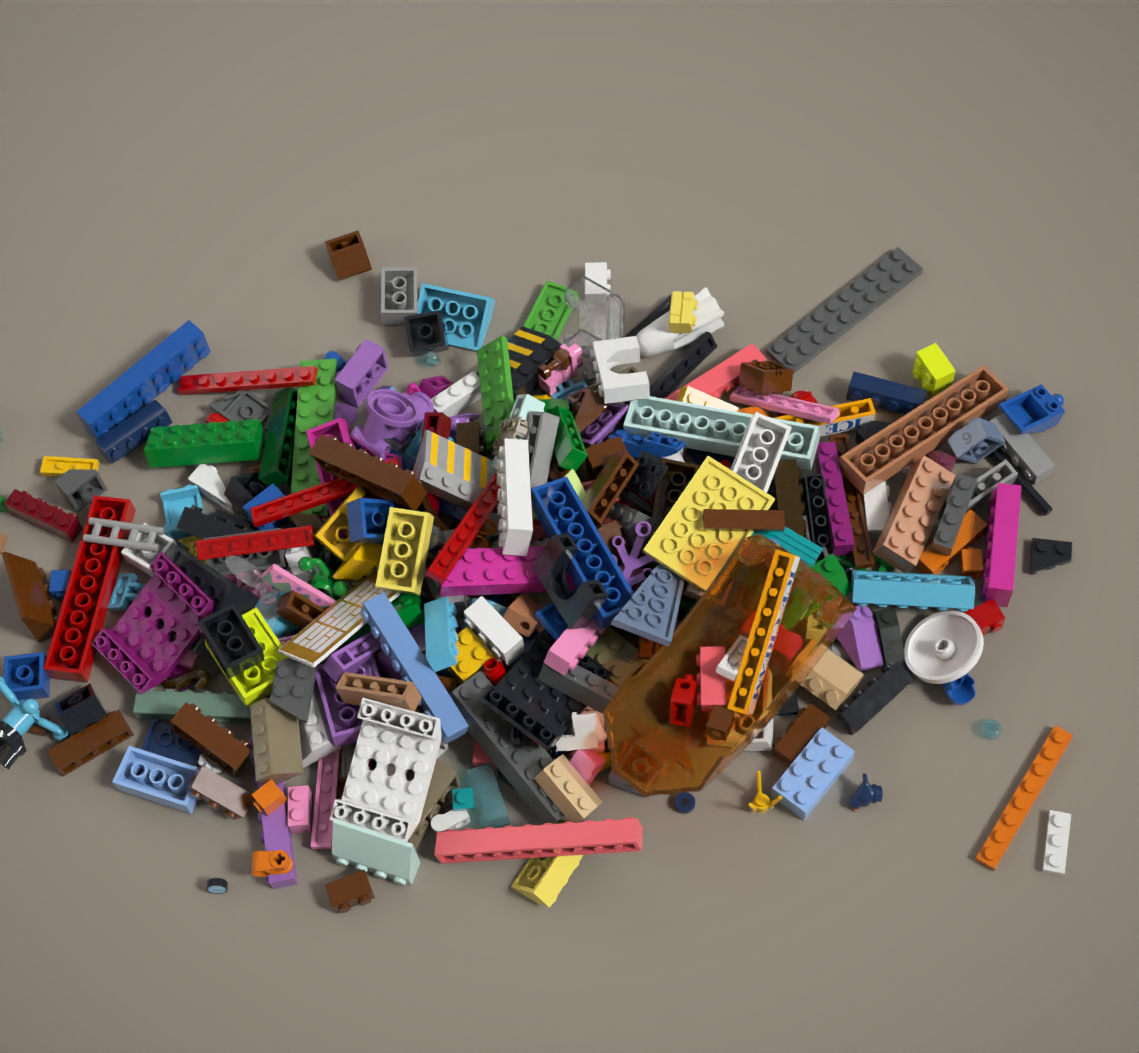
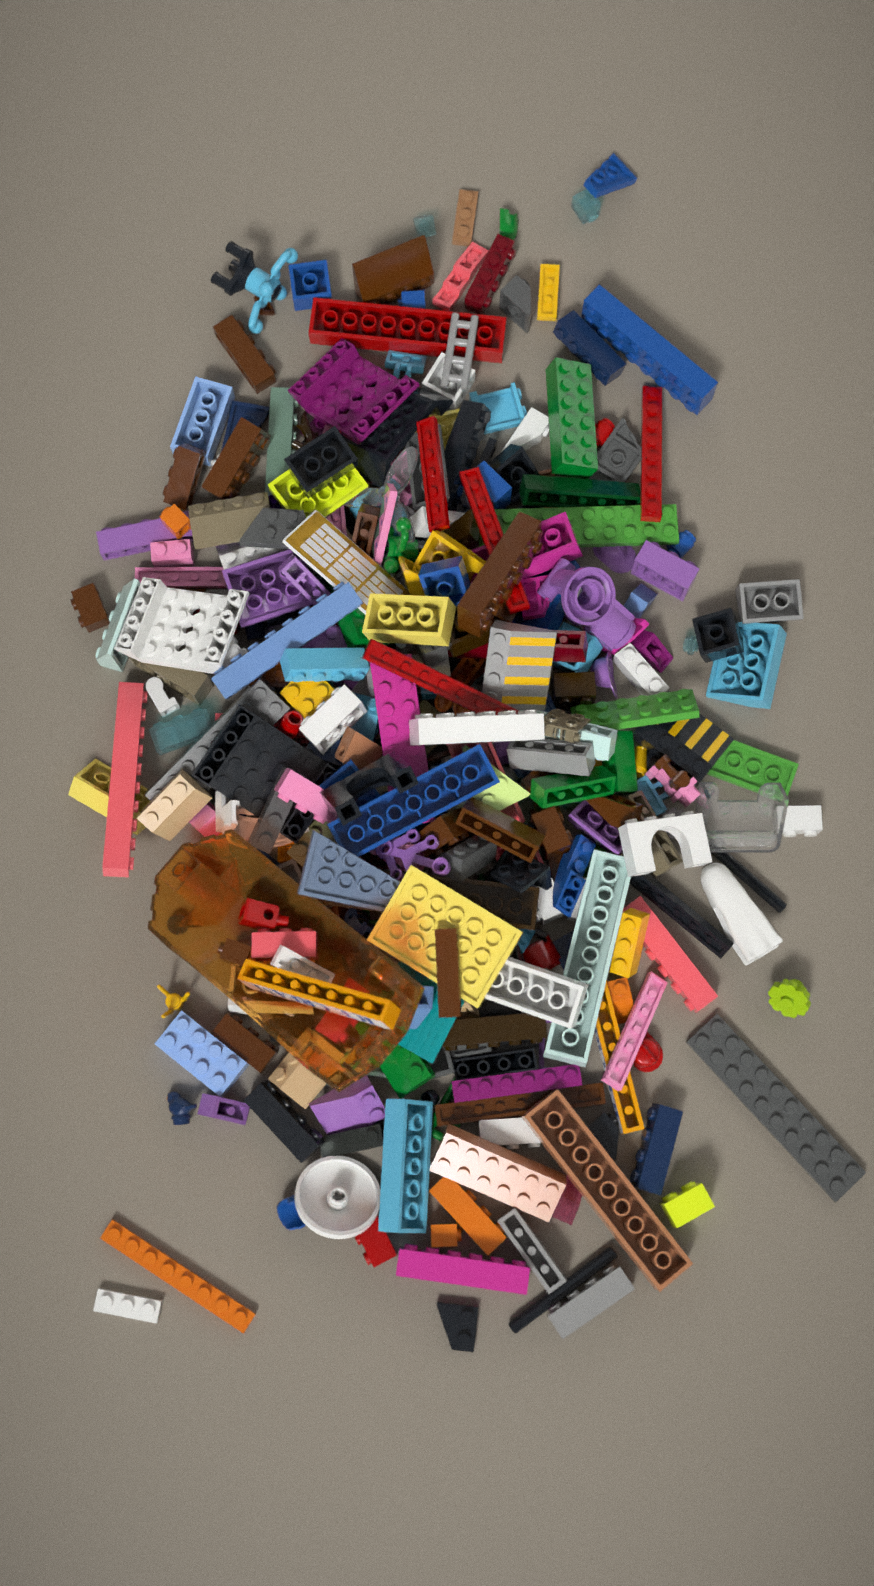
camera: 85 degrees right, 15 degrees up
(40, 544) = (460, 277): none -> coral slope
(80, 709) = (273, 338): black brick -> none
(217, 885) = (99, 486): black tile -> none
(267, 863) = (111, 527): orange piece -> none
(348, 255) = (821, 544): reddish brown slope -> none
(394, 692) = (256, 607): medium nougat brick -> none
(463, 799) = (174, 705): teal plate -> none
(682, 312) = (743, 912): light yellow brick -> none
(753, 291) = (789, 998): none -> lime plant
(766, 377) = (669, 1009): reddish brown brick -> none
(864, 755) = (223, 1109): none -> medium lavender slope
(954, 514) = (489, 1215): dark grey brick -> none
(976, 440) = (592, 1248): sand blue brick -> none
(991, 729) = (252, 1245): clear light blue plate -> none
(1034, 410) = (636, 1319): blue slope -> none

